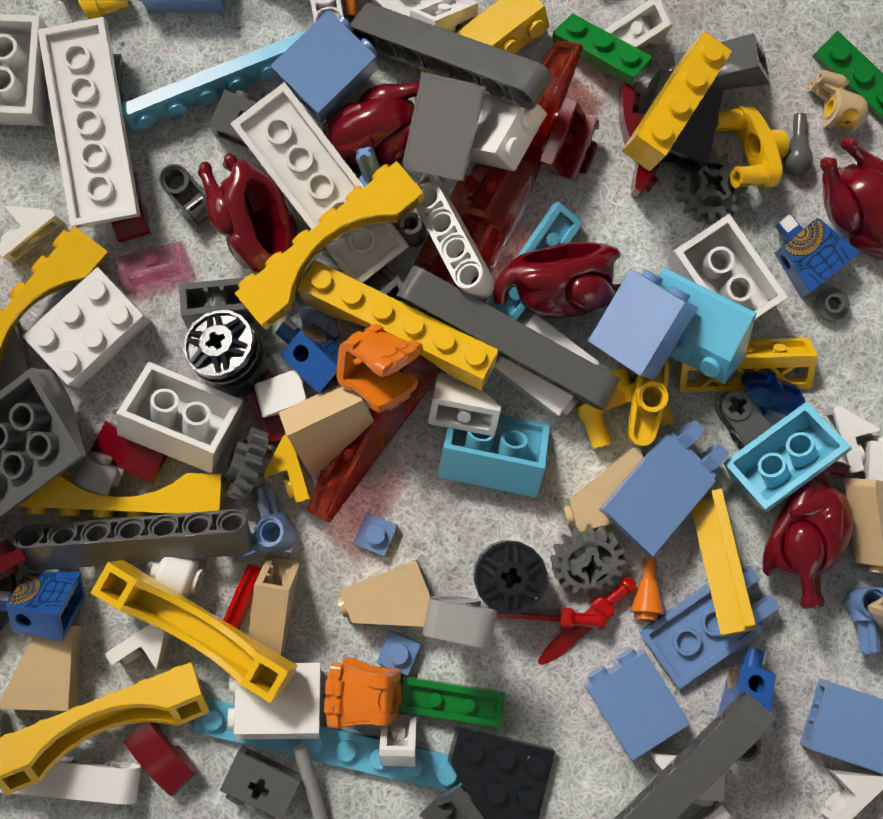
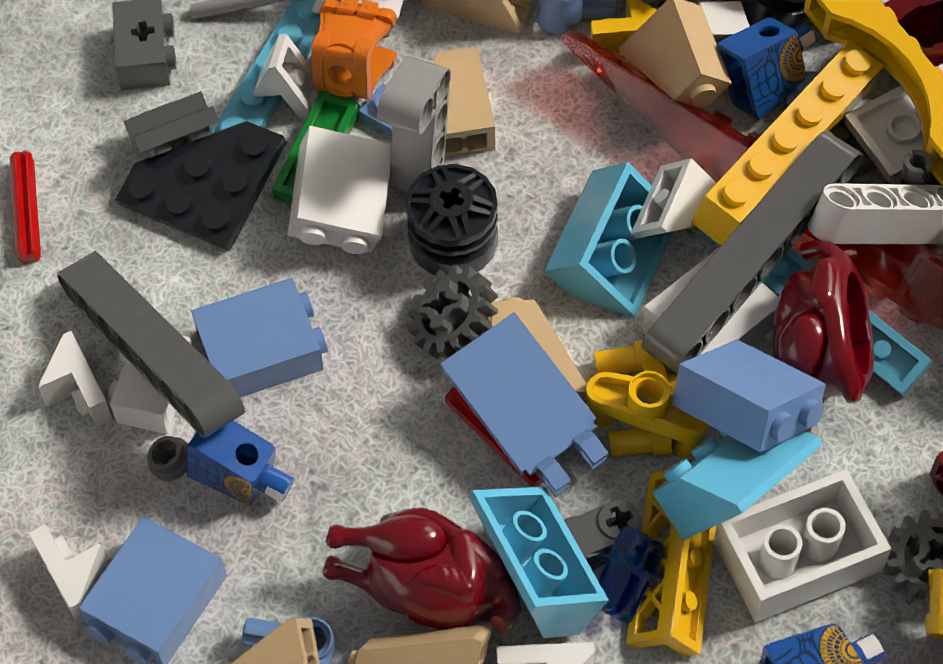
camera: 105 degrees right, 25 degrees down
(375, 534) = (535, 108): medium blue plate -> none
(376, 367) = (734, 90): orange piece -> none
(503, 675) = (340, 190): none -> white brick
(567, 619) = (383, 284): red sword -> none
(600, 603) = (384, 328): red sword -> none
(647, 600) = (386, 381): orange cone -> none
(689, 635) = (332, 444): medium blue tile -> none
(722, 565) = (408, 463): yellow fence -> none

